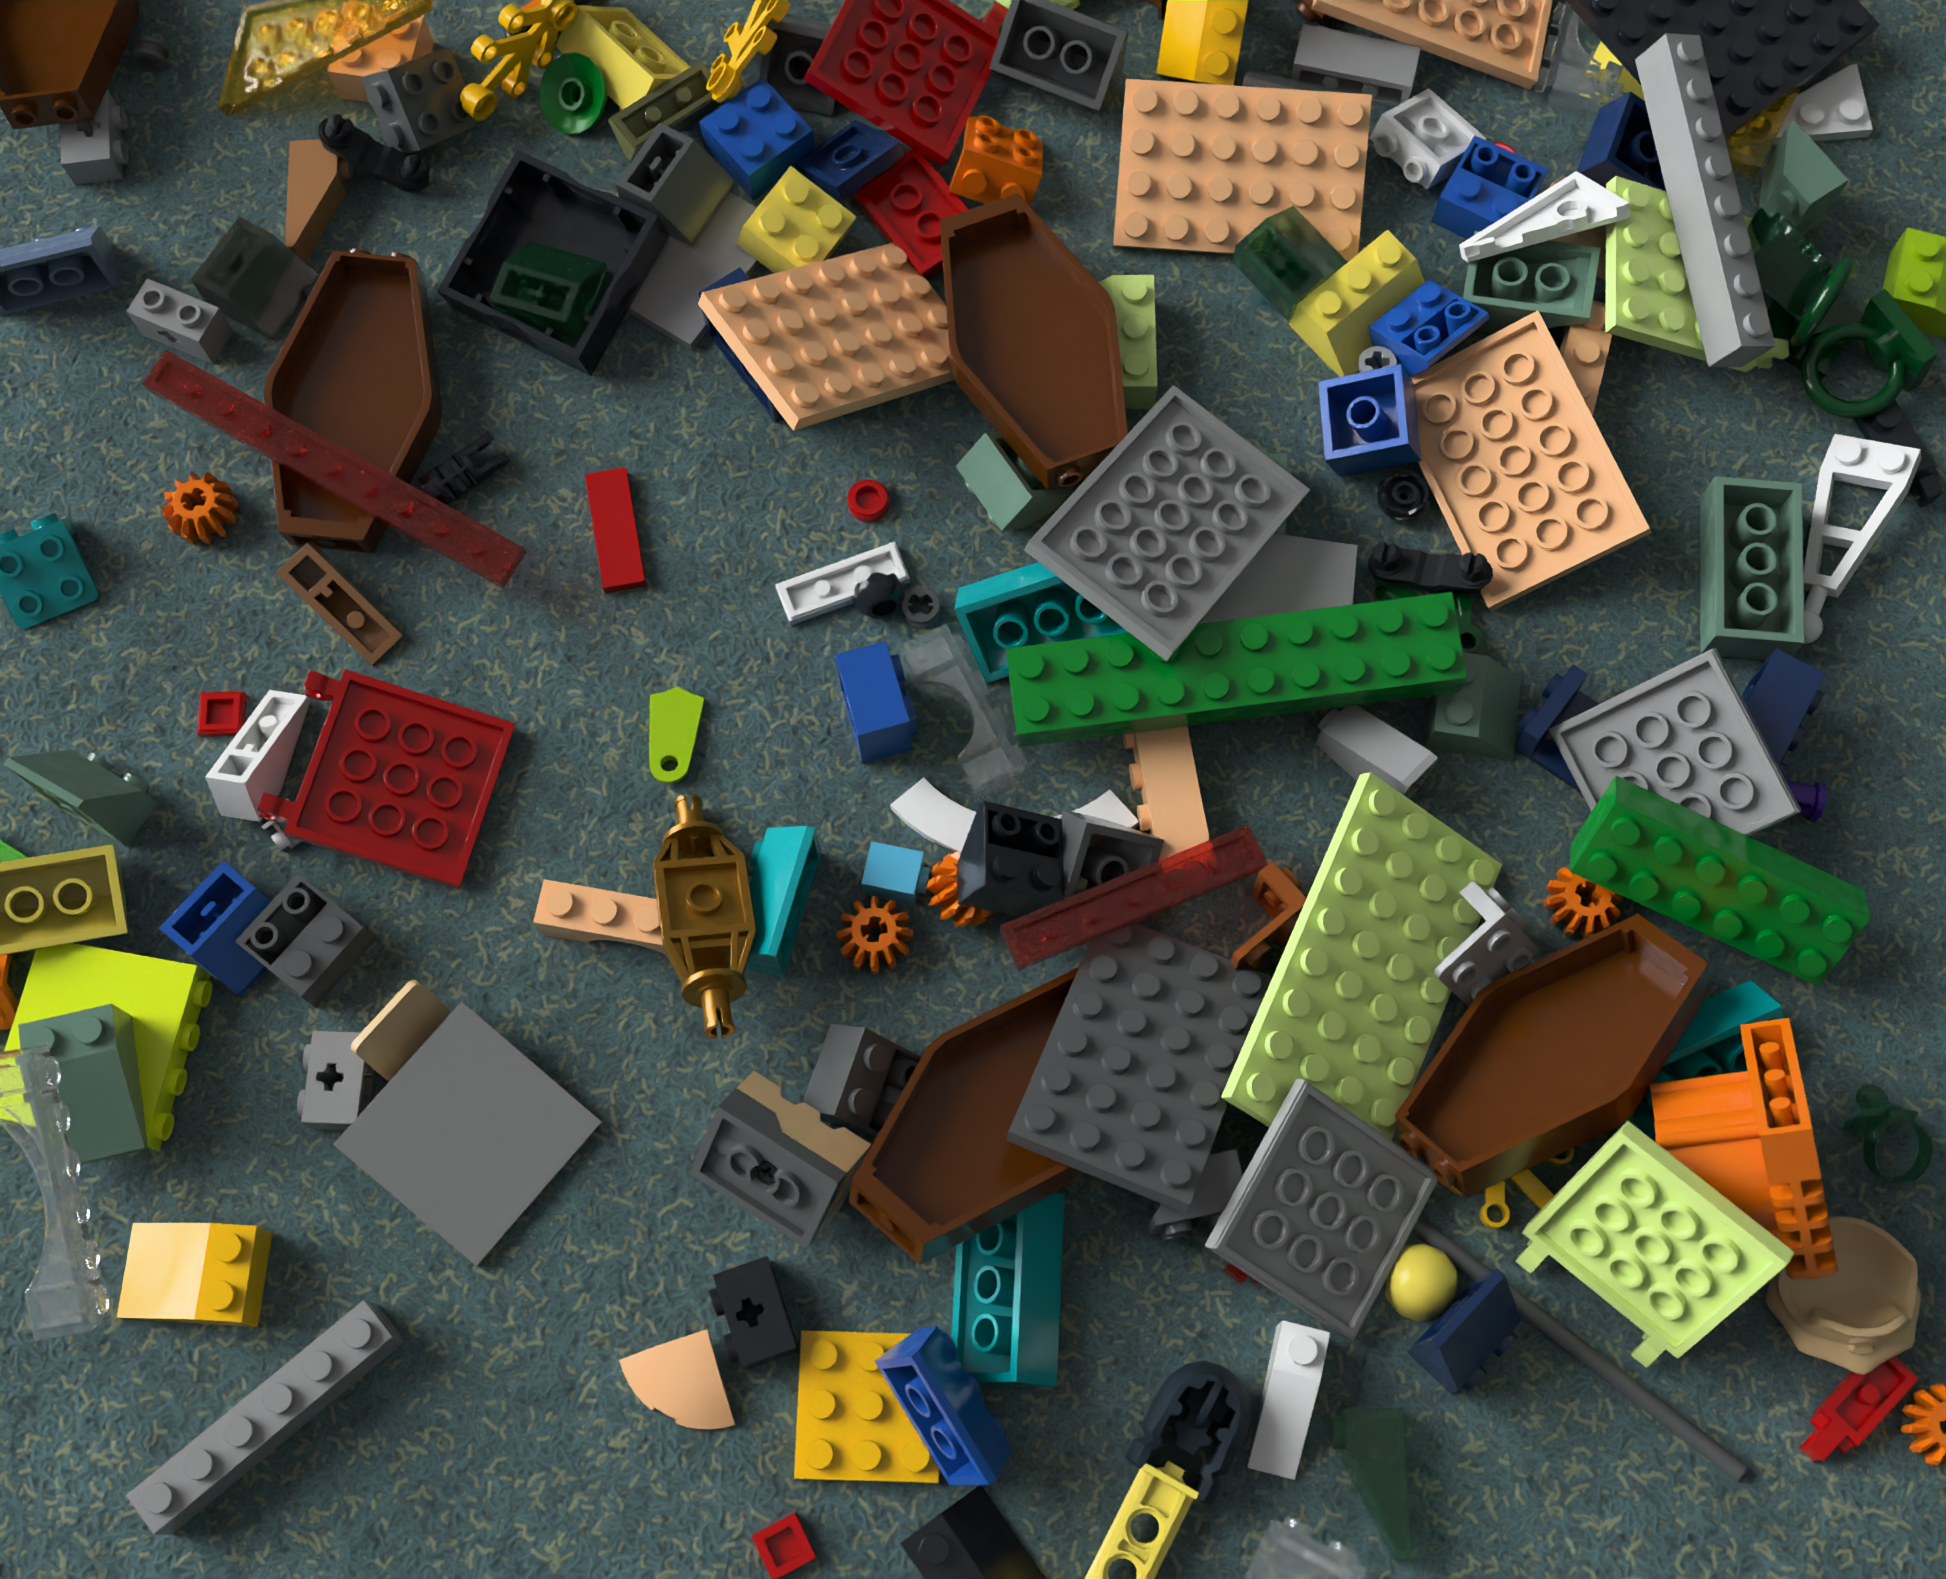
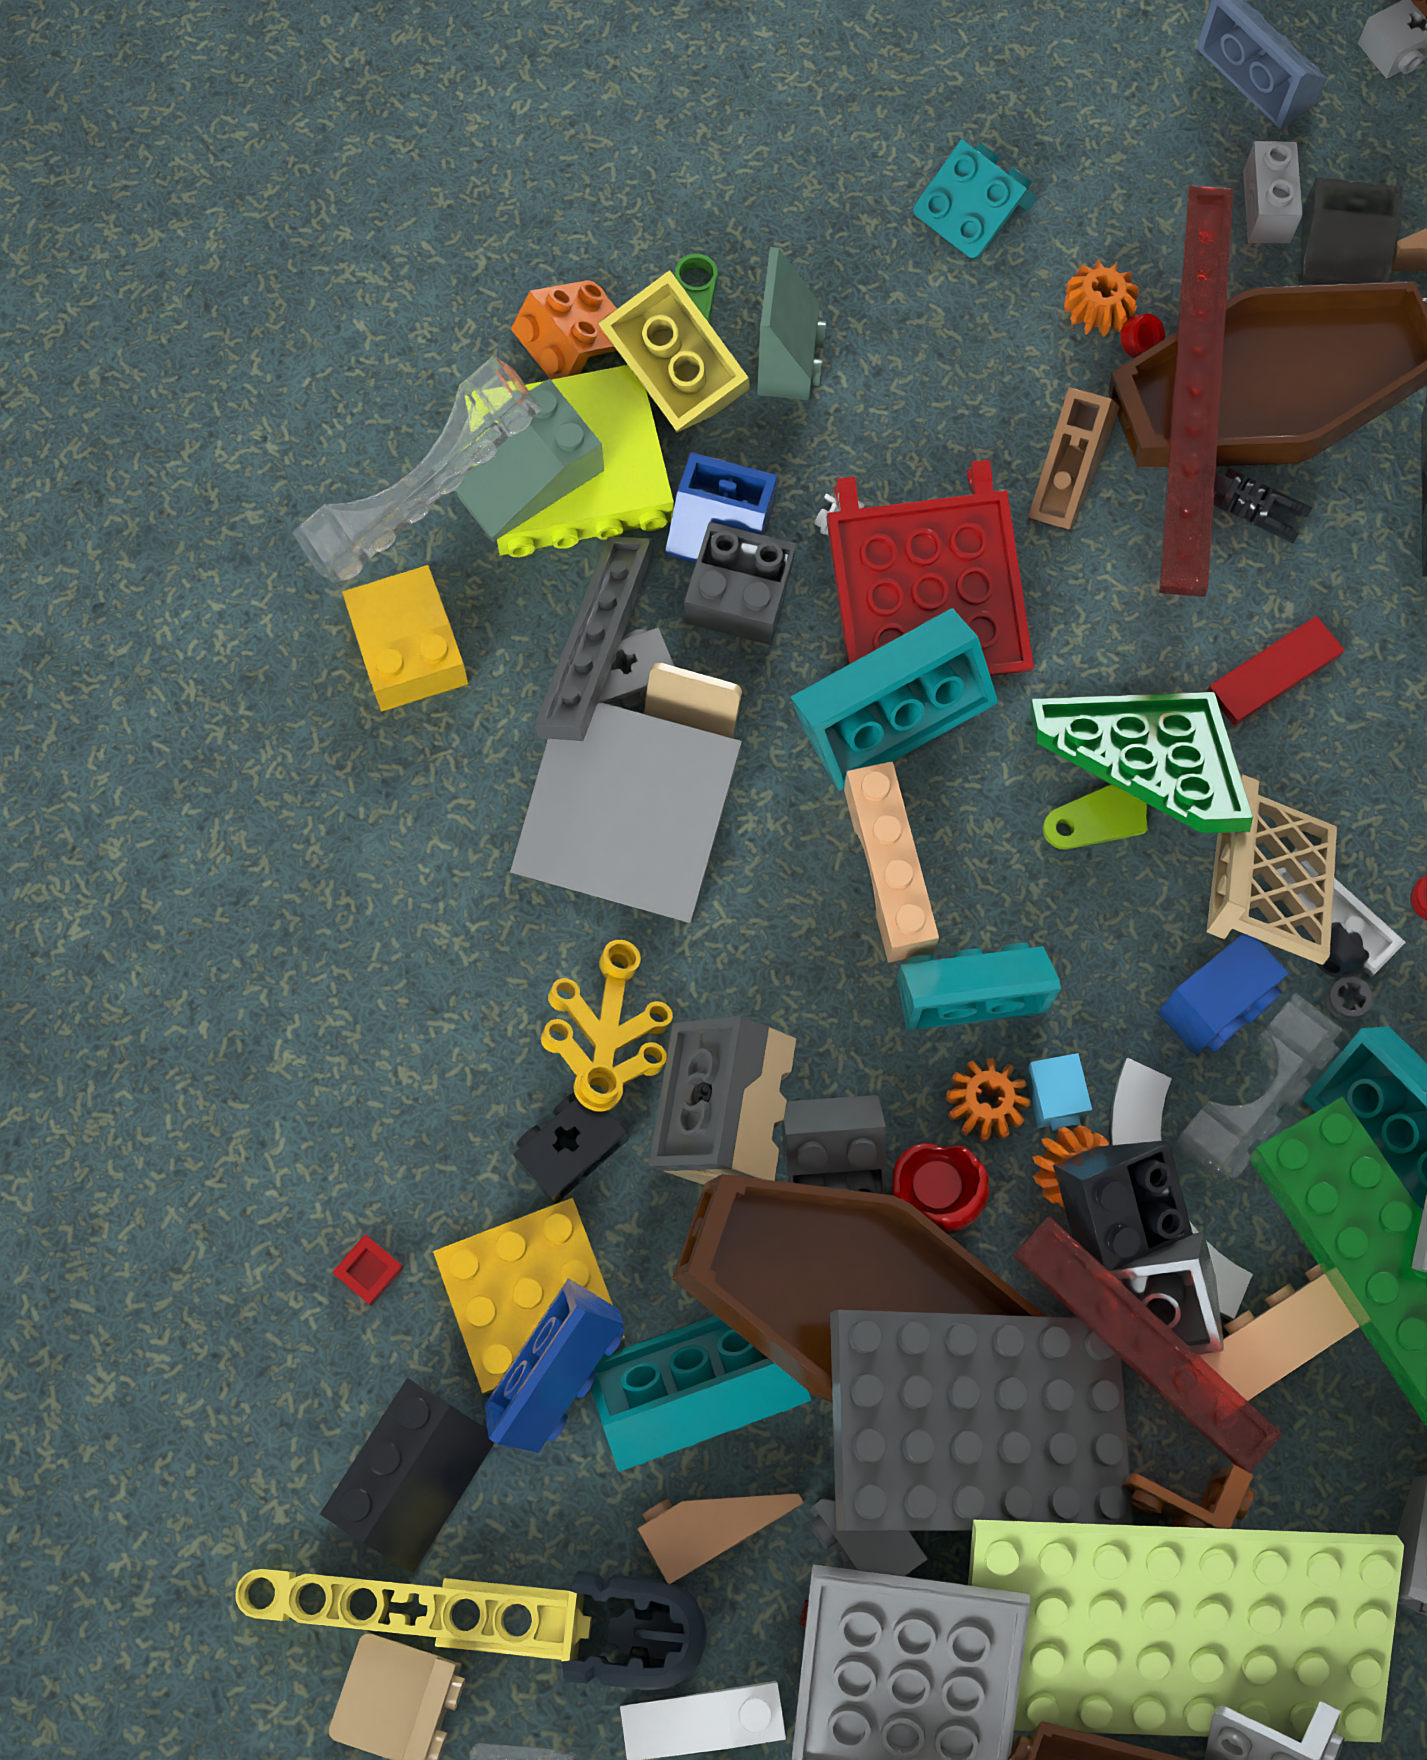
camera: 65 degrees right, 0 degrees up
(221, 713) = (917, 413): red tile -> none
(254, 490) = (1141, 334): none -> red tile
(258, 755) = (892, 460): white slope -> none
(265, 1419) = (305, 755): light grey brick -> none
(296, 1092) = (594, 639): none -> dark grey plate
(485, 851) = (897, 697): none -> teal slope
(639, 656) = (1154, 748): none -> green plate
(668, 1238) = (606, 1033): none -> yellow plant
(682, 1382) = (480, 1107): light nougat brick -> none
(704, 914) = (927, 922): pearl gold plate -> none
(770, 634) = (1240, 860): none -> tan fence
(931, 1003) = (942, 1184): none -> red piece
(1133, 1340) = (700, 1530): none -> medium nougat slope

